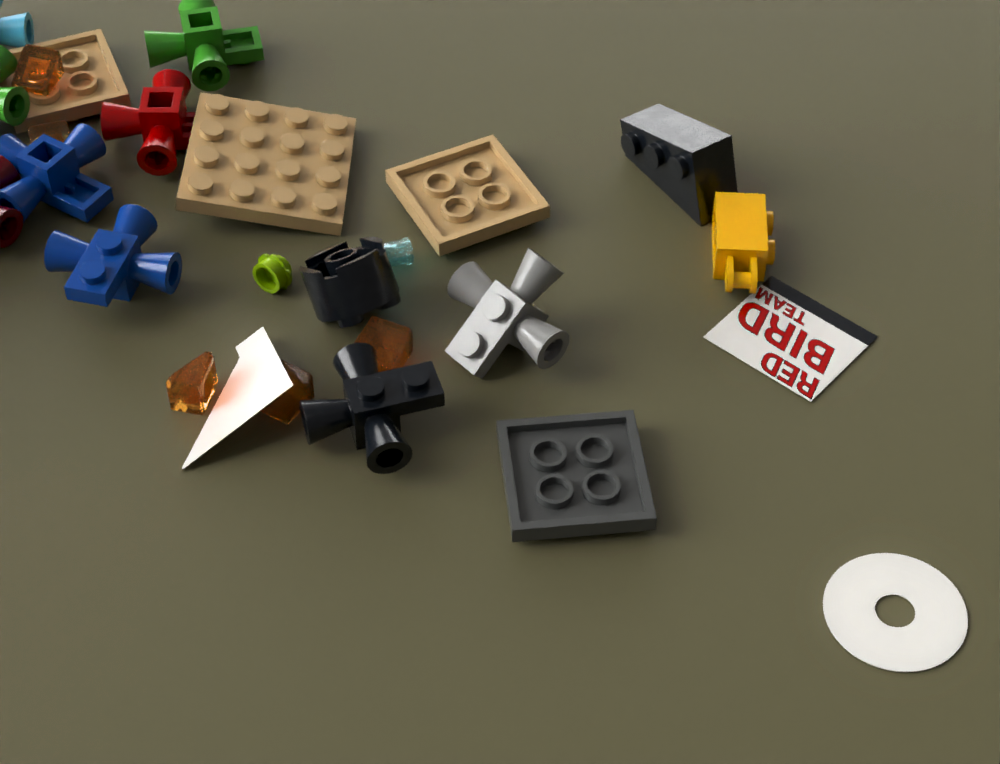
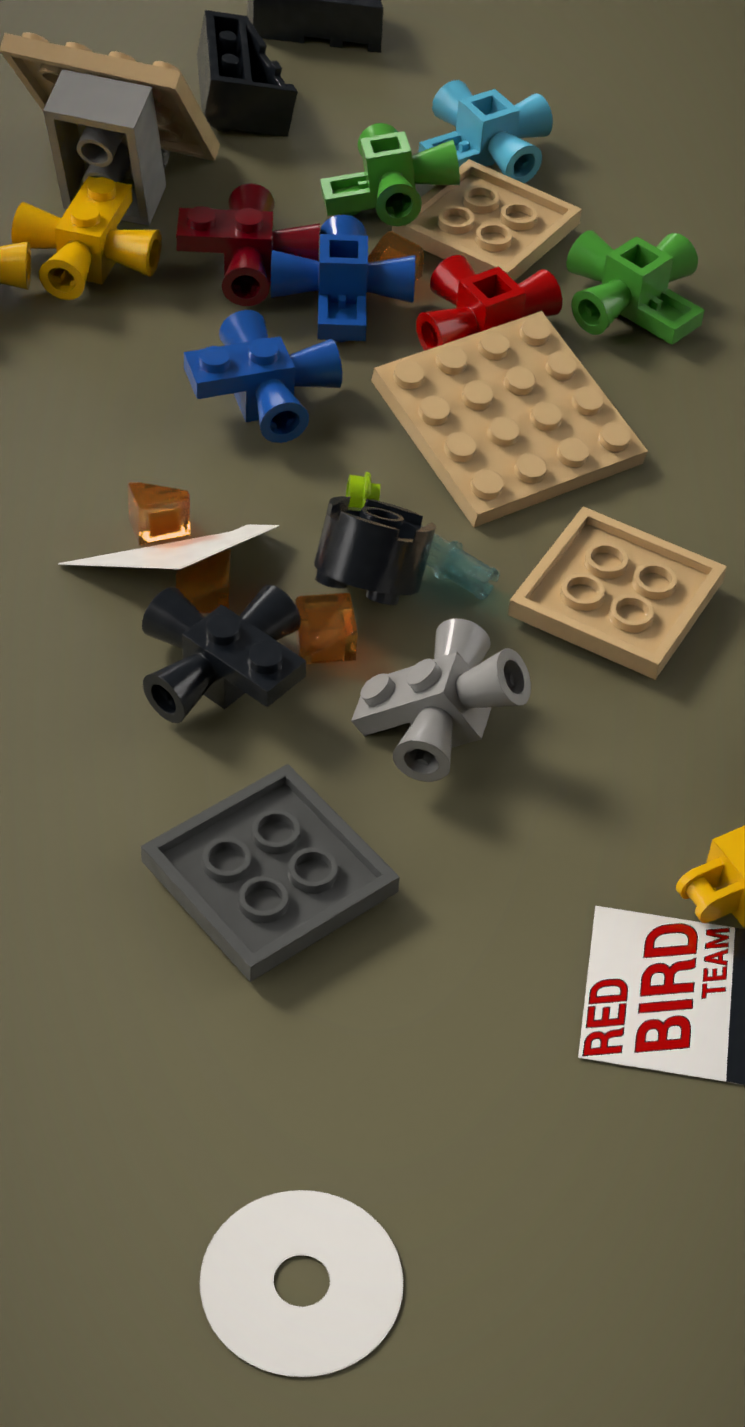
camera: 55 degrees right, 0 degrees up
(38, 69) = (466, 196): clear orange slope -> none

